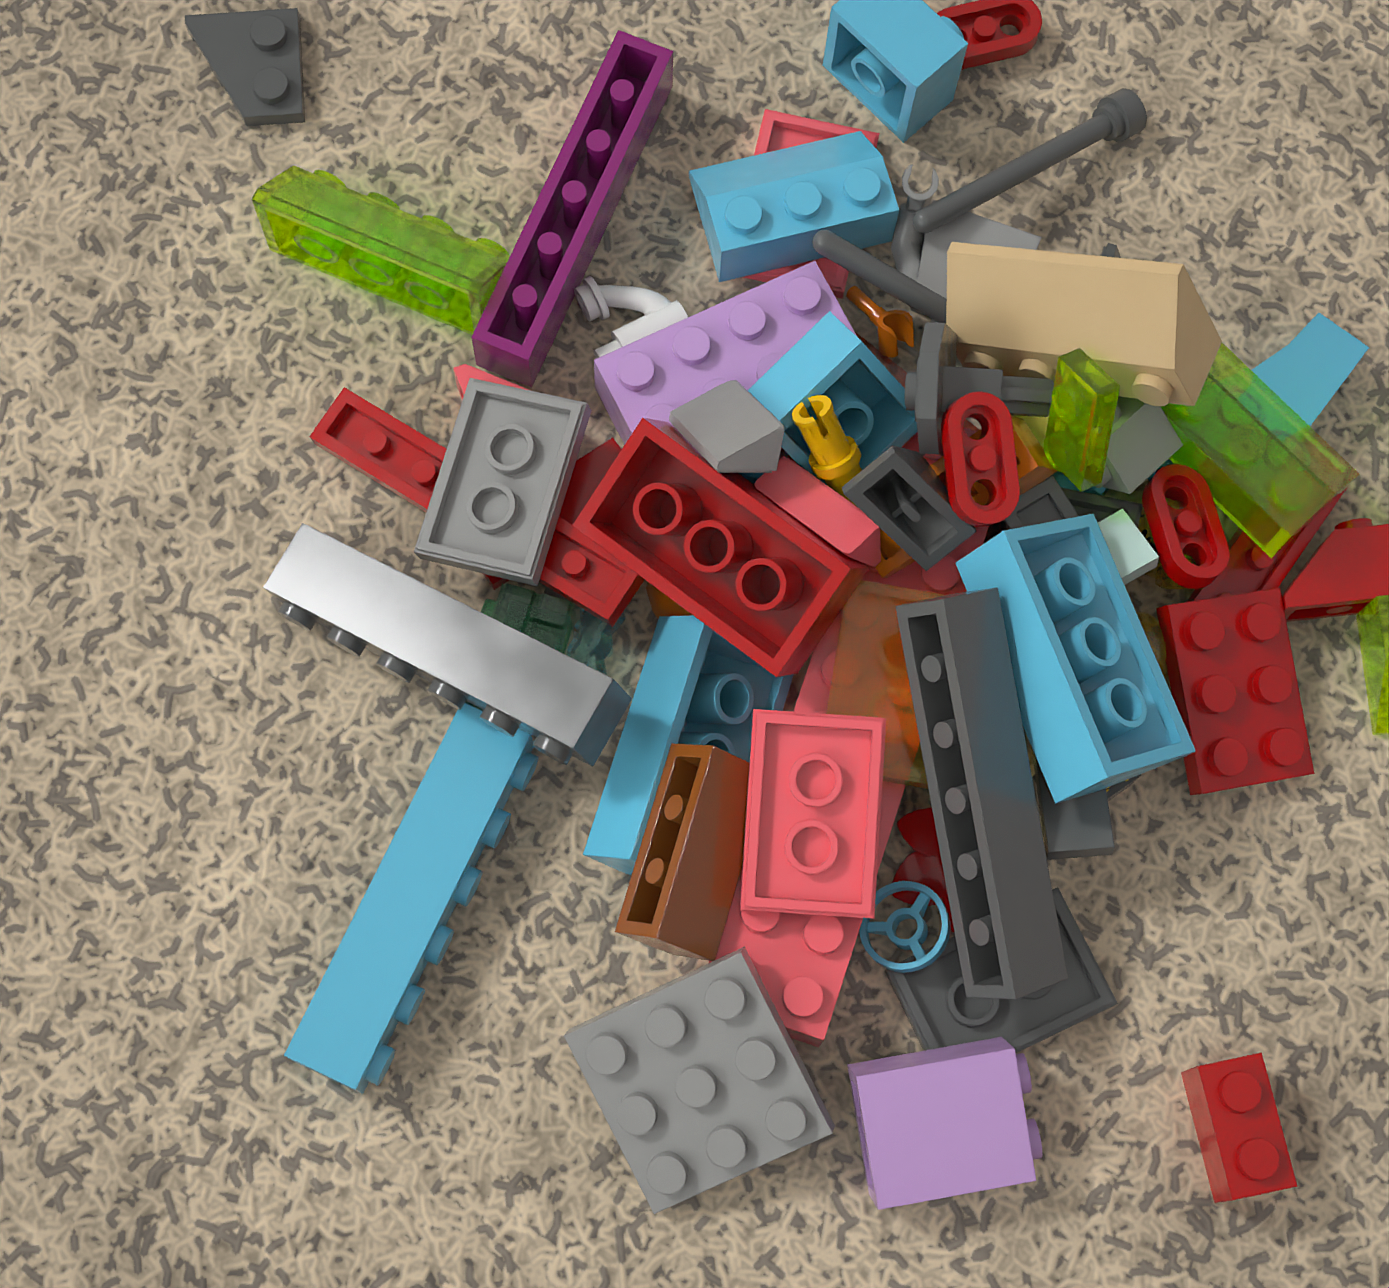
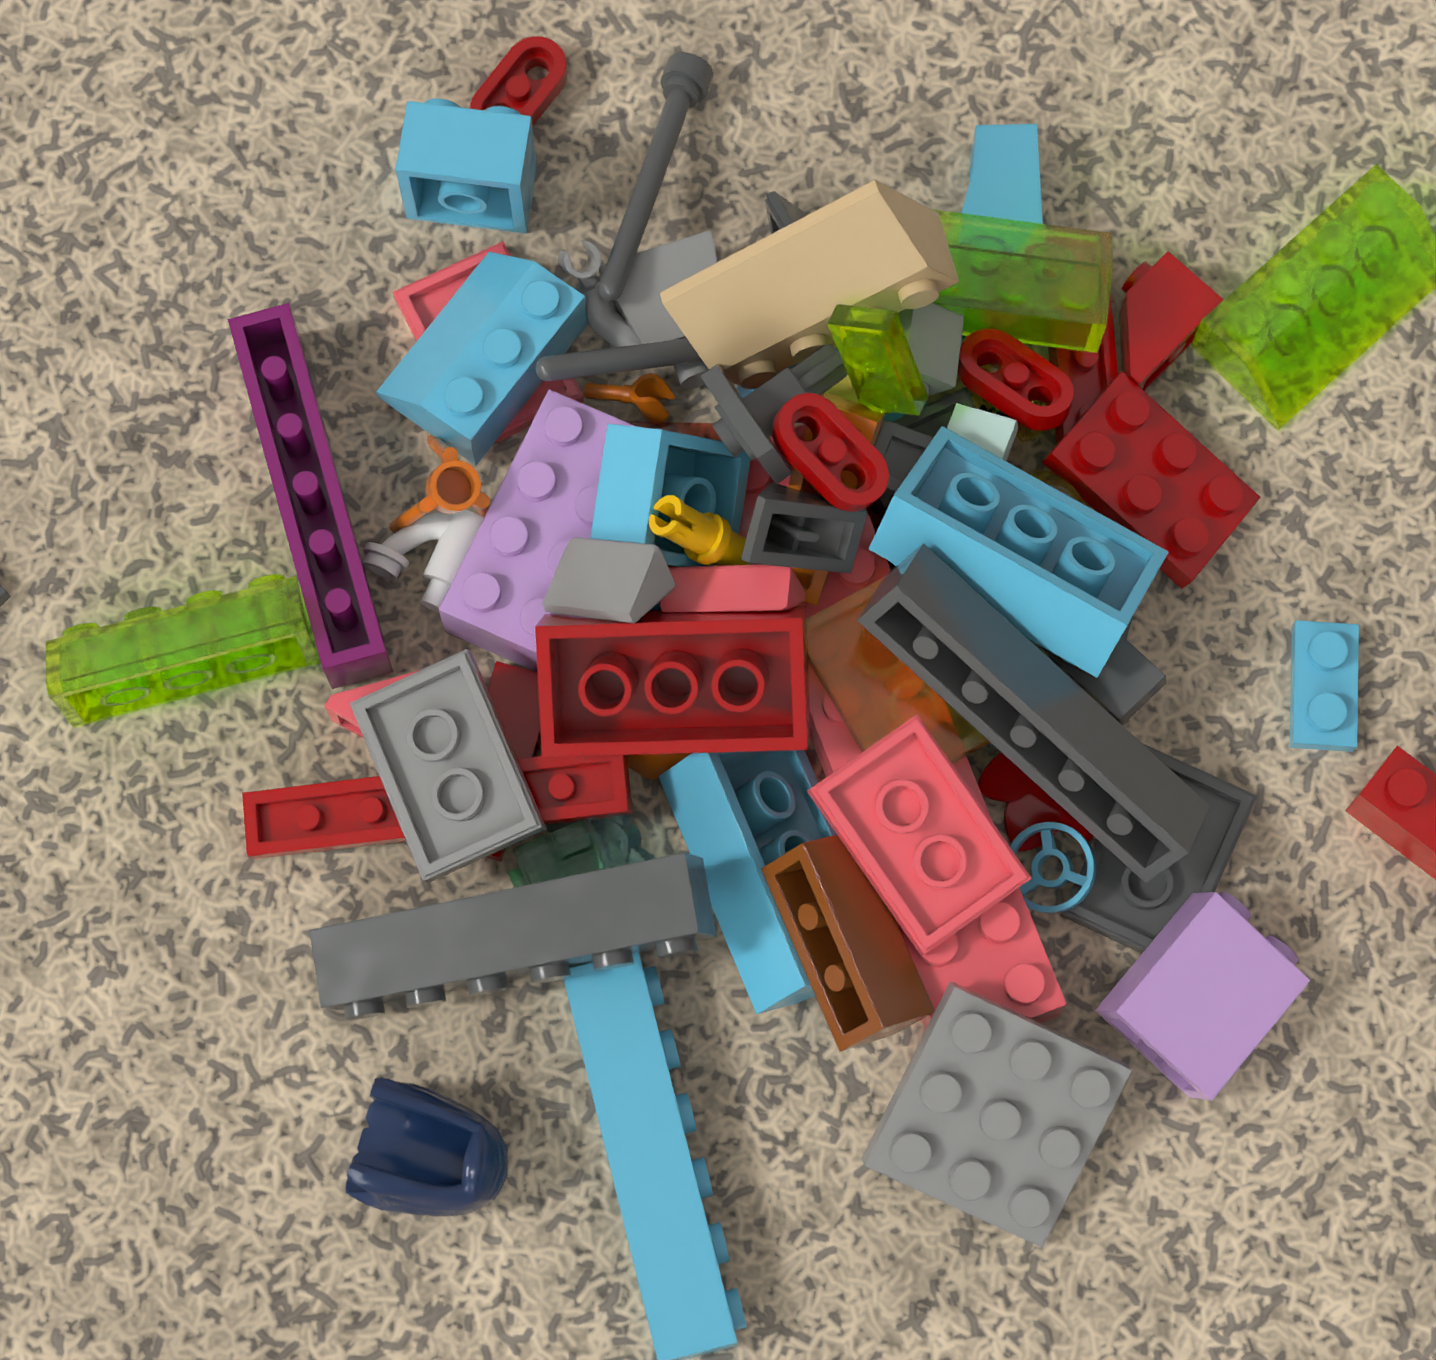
camera: 35 degrees left, 0 degrees up
(249, 758) = (425, 1154): none -> dark blue hair
(676, 276) = (448, 489): none -> orange plant
(1244, 961) = (1324, 686): none -> medium azure plate

